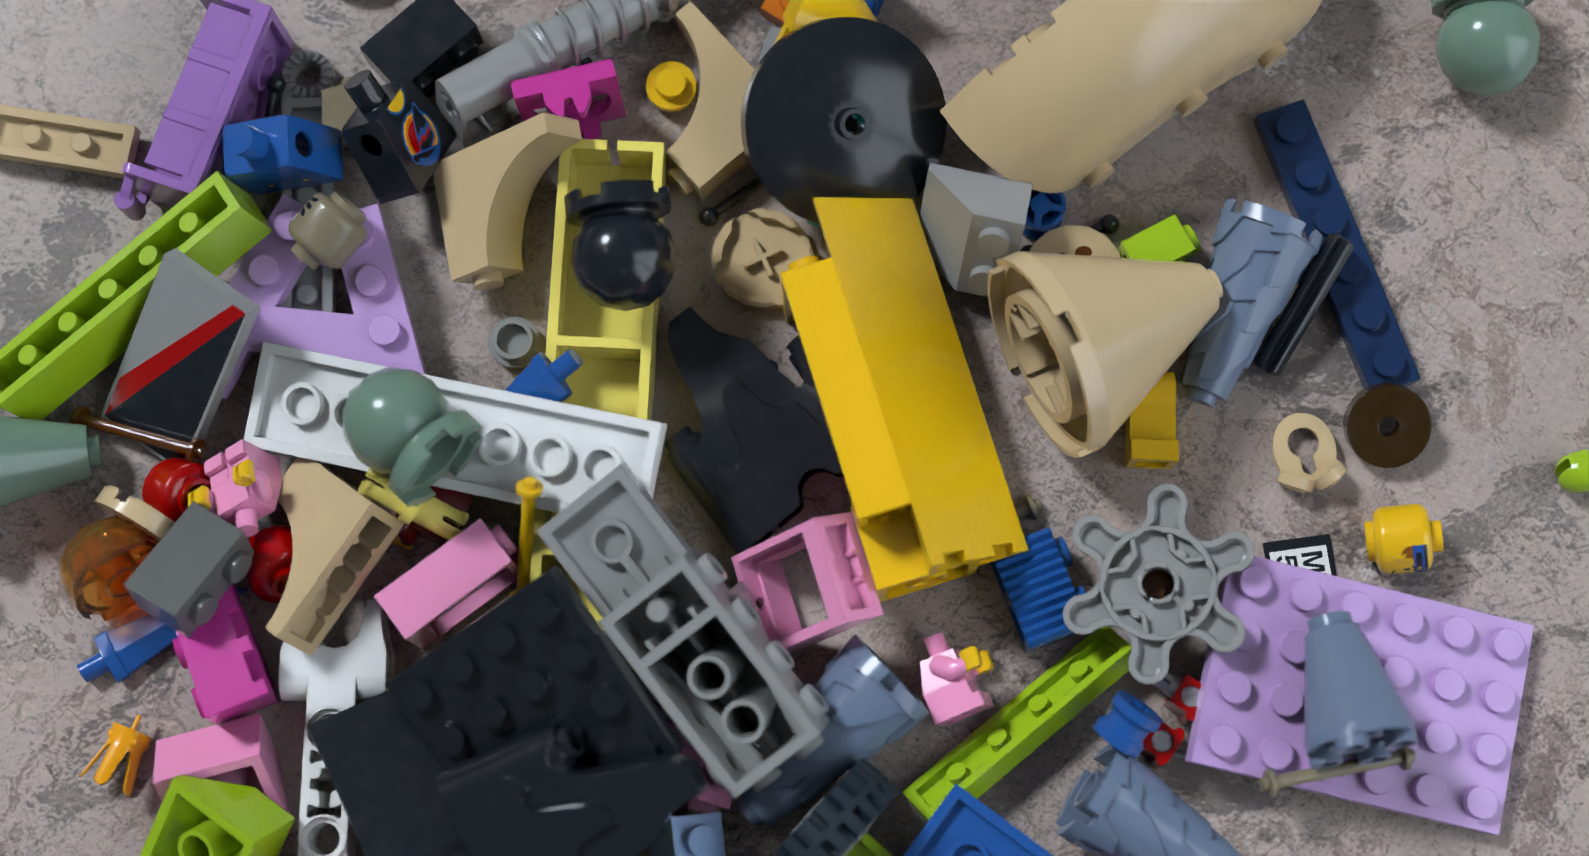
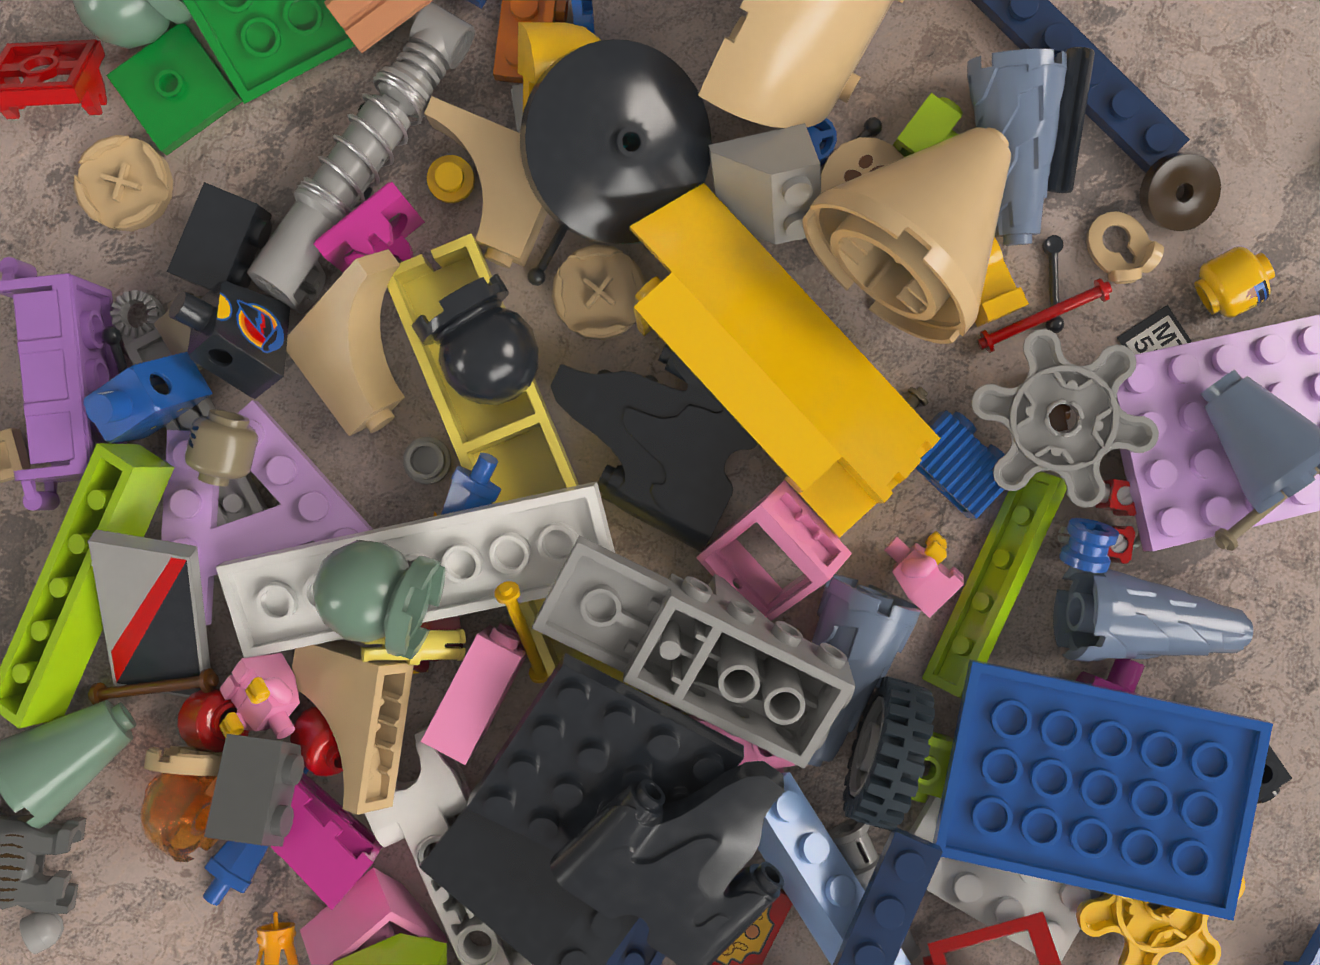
camera: 30 degrees left, 10 degrees up
(1236, 423) = (1052, 247): none -> black hinge
(1260, 485) = (1100, 290): none -> red axle

